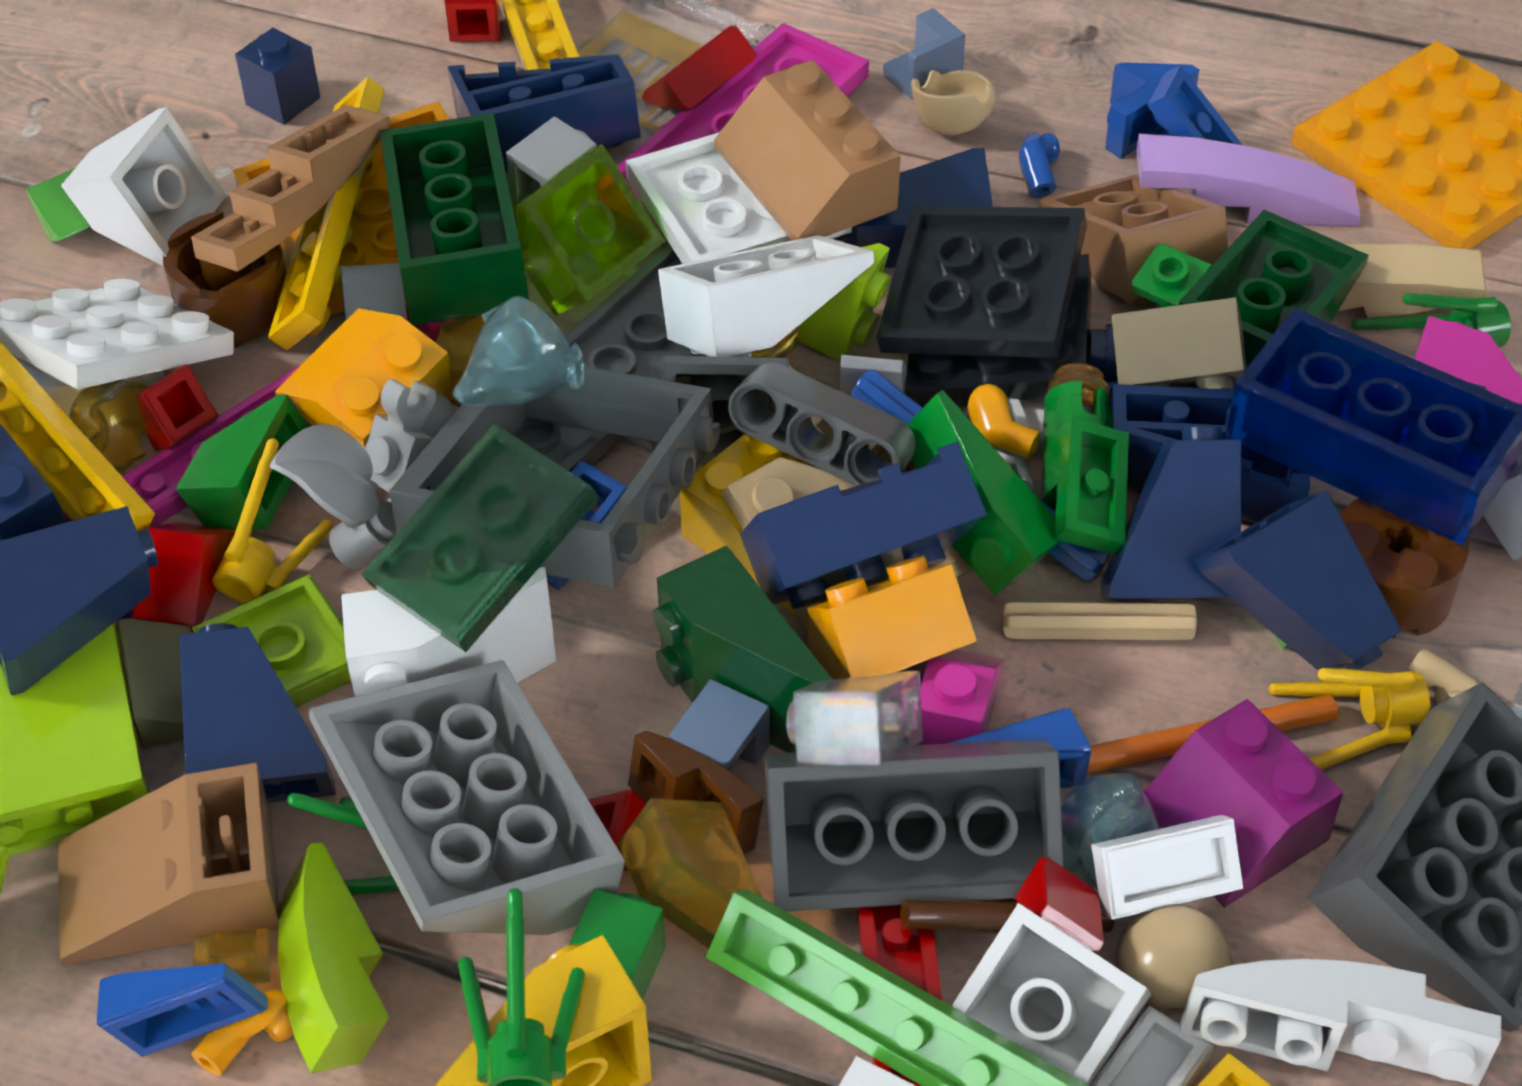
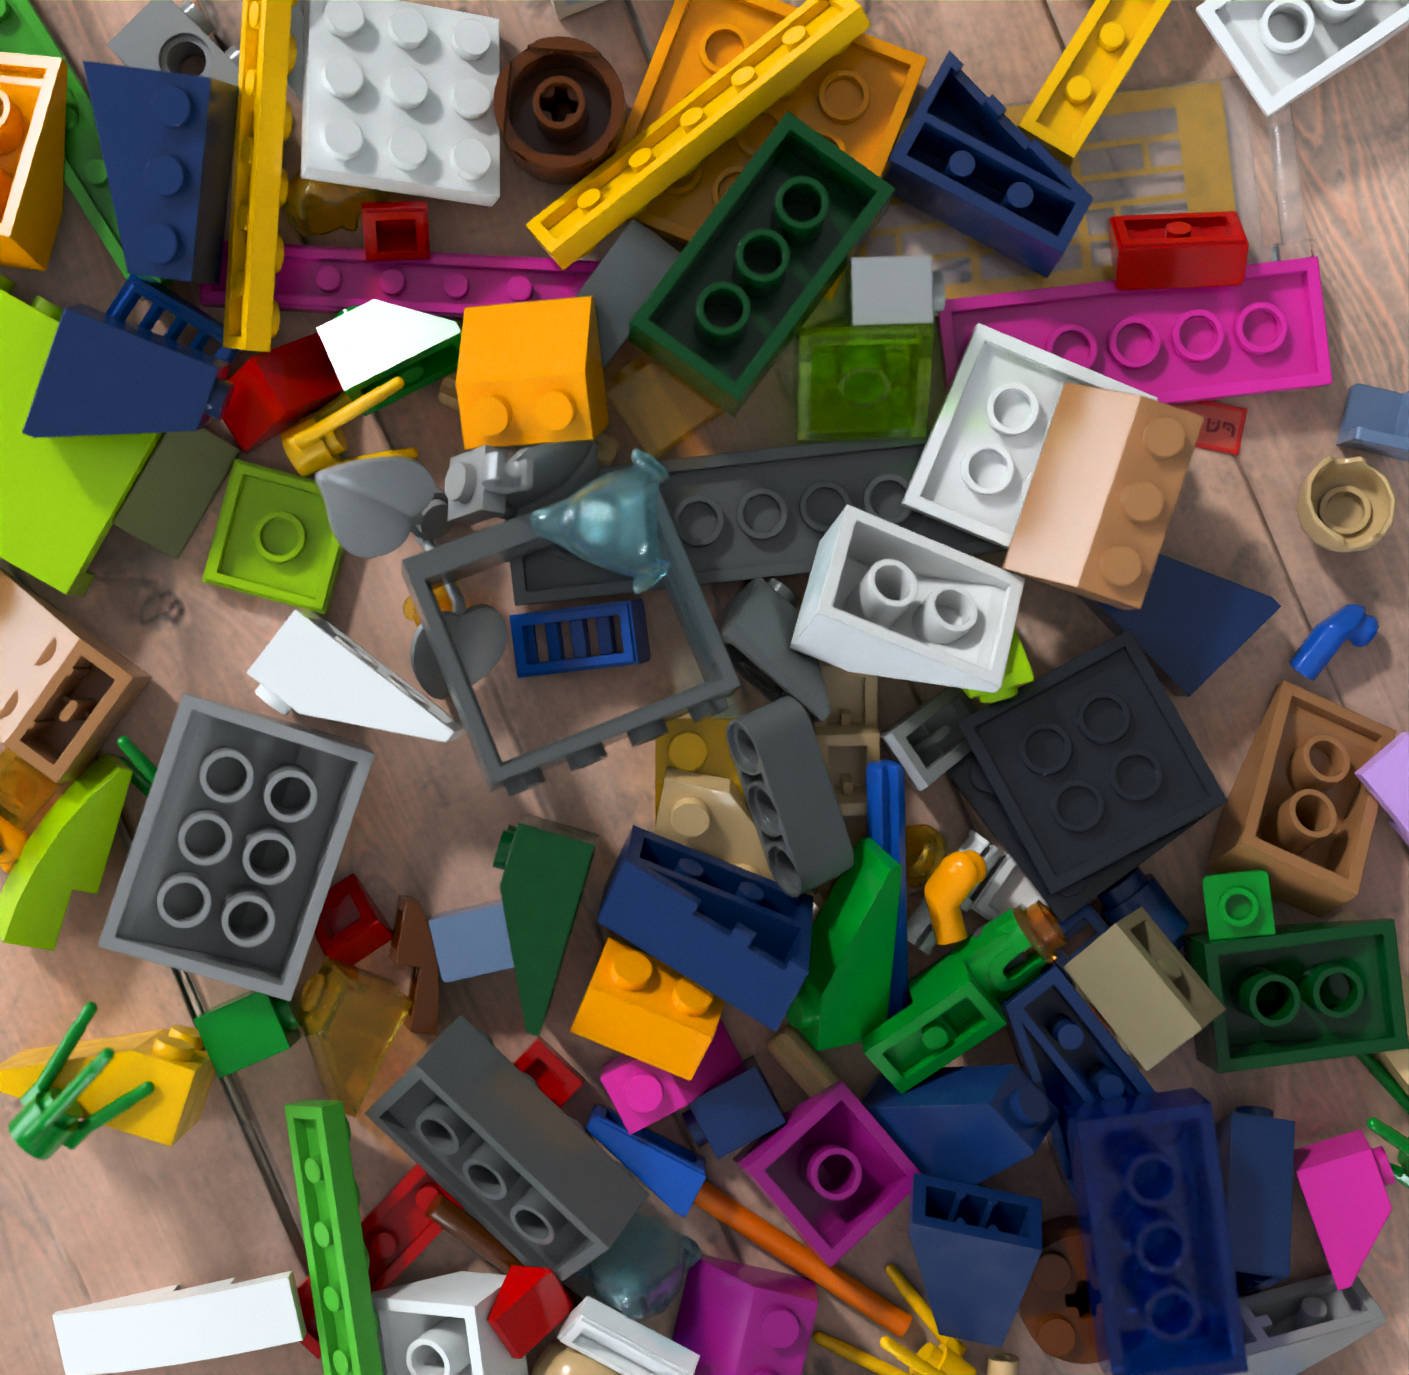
camera: 45 degrees right, 40 degrees up
(244, 715) = (178, 605): dark blue slope -> none
(302, 178) = (666, 101): medium nougat slope -> none
(480, 537) = (413, 683): clear green tile -> none
(856, 719) = (518, 1082): clear slope -> none
(1032, 670) = (734, 1110): none -> dark blue brick
(1144, 642) = (829, 1171): none -> magenta slope

